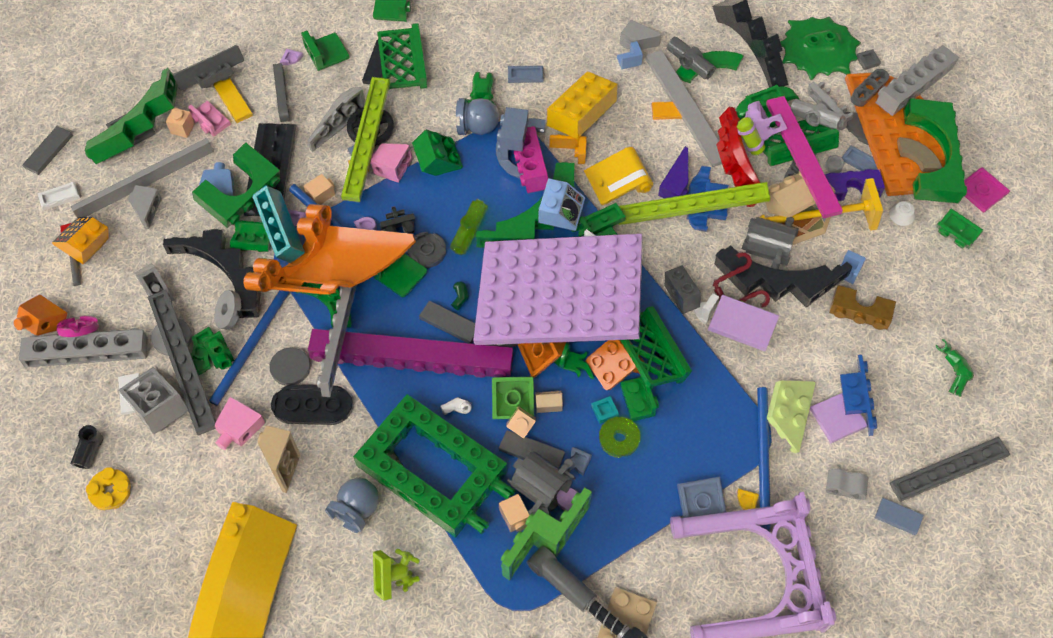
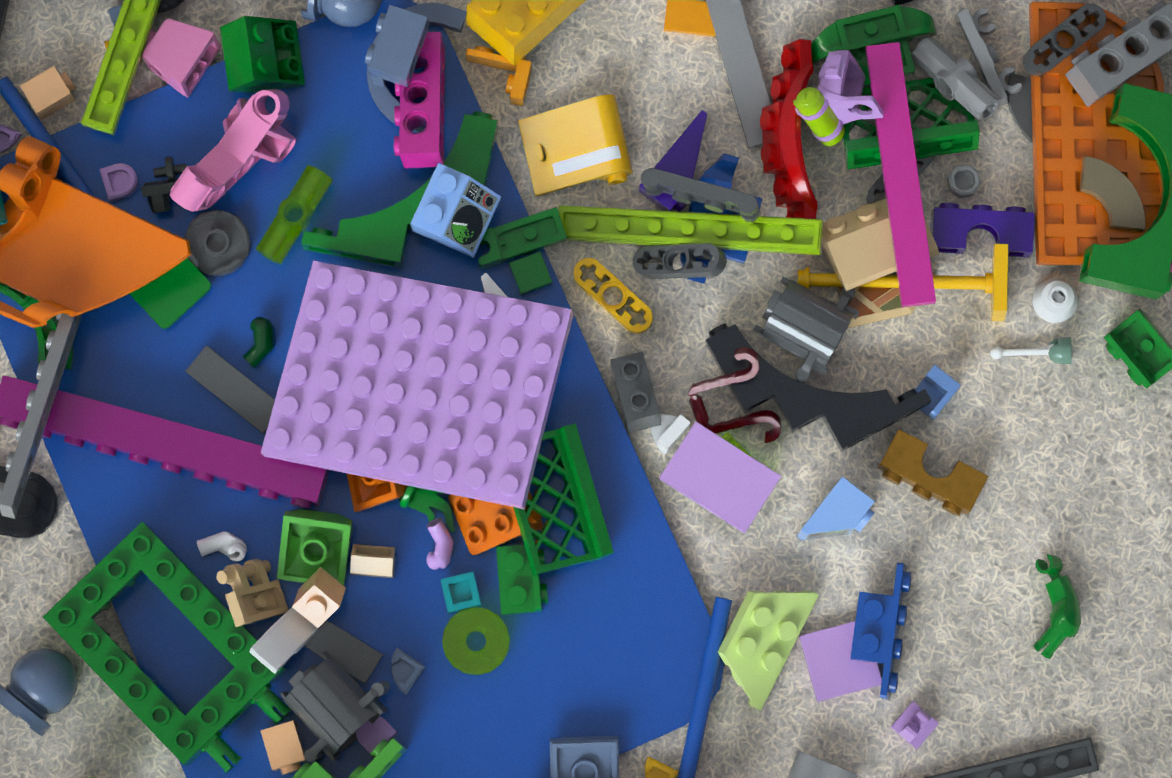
camera: 10 degrees right, 20 degrees up
(435, 193) = (248, 137): none -> bright pink connector
(479, 426) = (254, 602): none -> tan plate
(503, 448) = (283, 640): none -> white slope
(589, 386) = (444, 545): none -> lavender arm
(664, 244) = (599, 273): none -> yellow beam
(680, 228) = (691, 268): none -> dark grey beam
(696, 178) = (713, 196): none -> dark grey plate
(817, 333) = (839, 513): none -> light blue slope
(859, 159) = (1011, 177): sand blue tile -> none
(893, 446) = (914, 725): none -> lavender tile
(913, 237) = (1058, 351): none -> hinge

